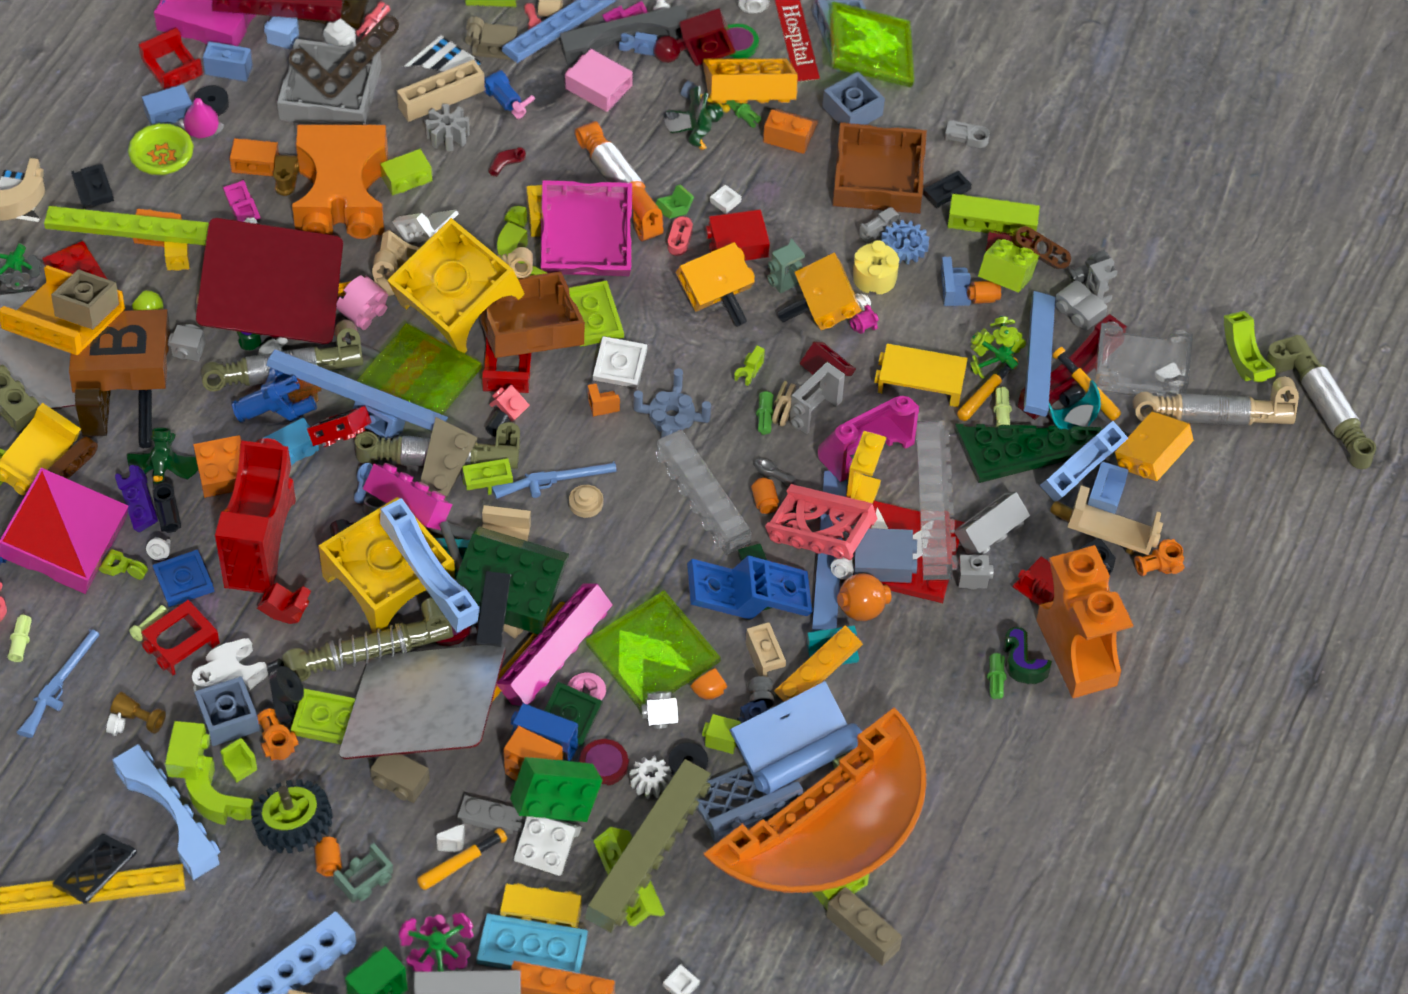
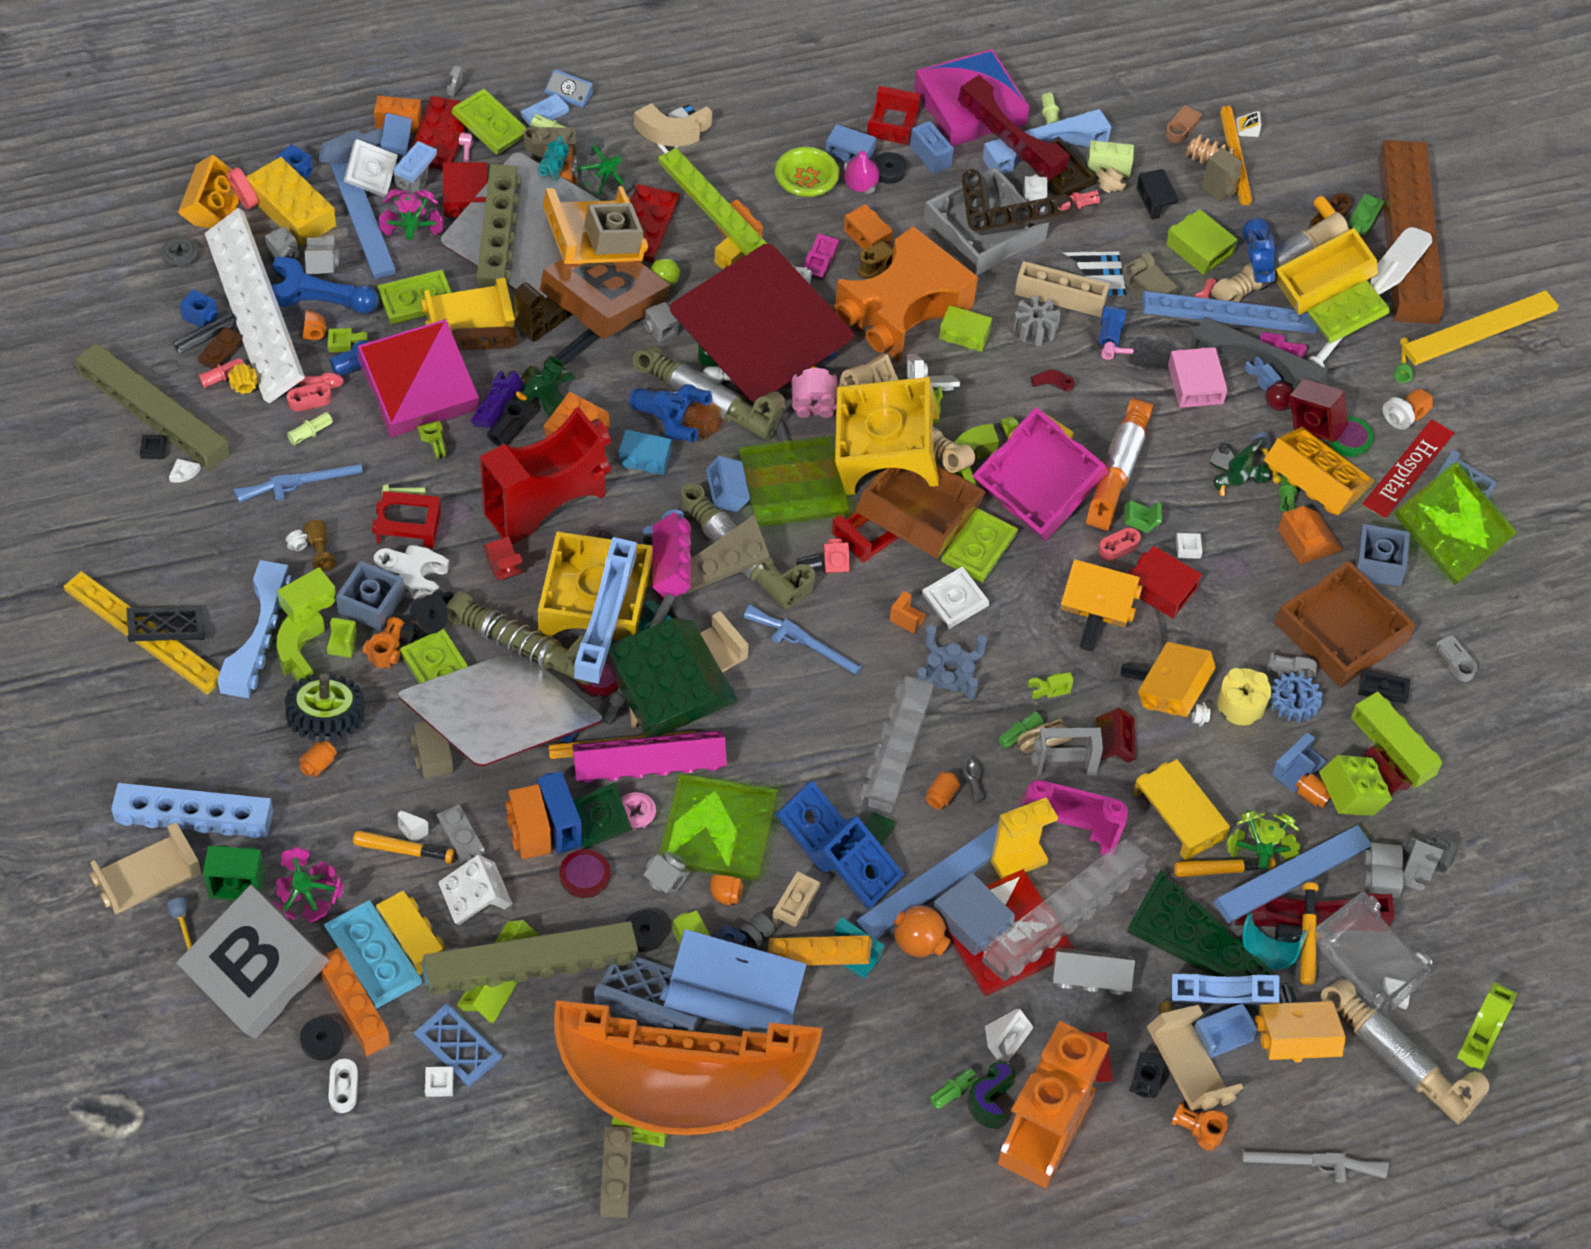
camera: 45 degrees right, 0 degrees up
(92, 186) = (731, 161): black plate -> none
(158, 548) = (469, 448): white plate -> none
(183, 578) = (458, 482): blue plate -> none
(339, 426) = (685, 466): red piece -> none
(353, 390) = (724, 448): medium blue tile -> none
(364, 875) = (324, 794): sand green window -> none
(487, 475) = (750, 592): lime panel -> none
(493, 608) = (619, 684): black tile -> none
(556, 789) = (511, 855): green brick -> none
(586, 501) = (803, 675): tan plate -> none
(641, 776) = (600, 912): white gear -> none
(648, 966) = (435, 1047): none -> medium blue window
(783, 265) = (1166, 628): sand green window -> none
(825, 540) = (956, 817): coral fence -> none
(842, 568) = (930, 893): white plate -> none
(864, 320) = (1185, 728): dark pink brick -> none
(974, 571) = (1032, 992): light grey brick -> none
(986, 613) = (1007, 1034): none -> white slope
(1002, 407) = (1218, 889): yellowish green axle -> none
(1032, 234) = (1416, 811): reddish brown beam -> none
(1080, 415) = (1274, 954): light grey tile -> none
(1251, 511) = (1335, 1160): none -> light grey piece
(1326, 396) = (1513, 1126): olive piece -> none

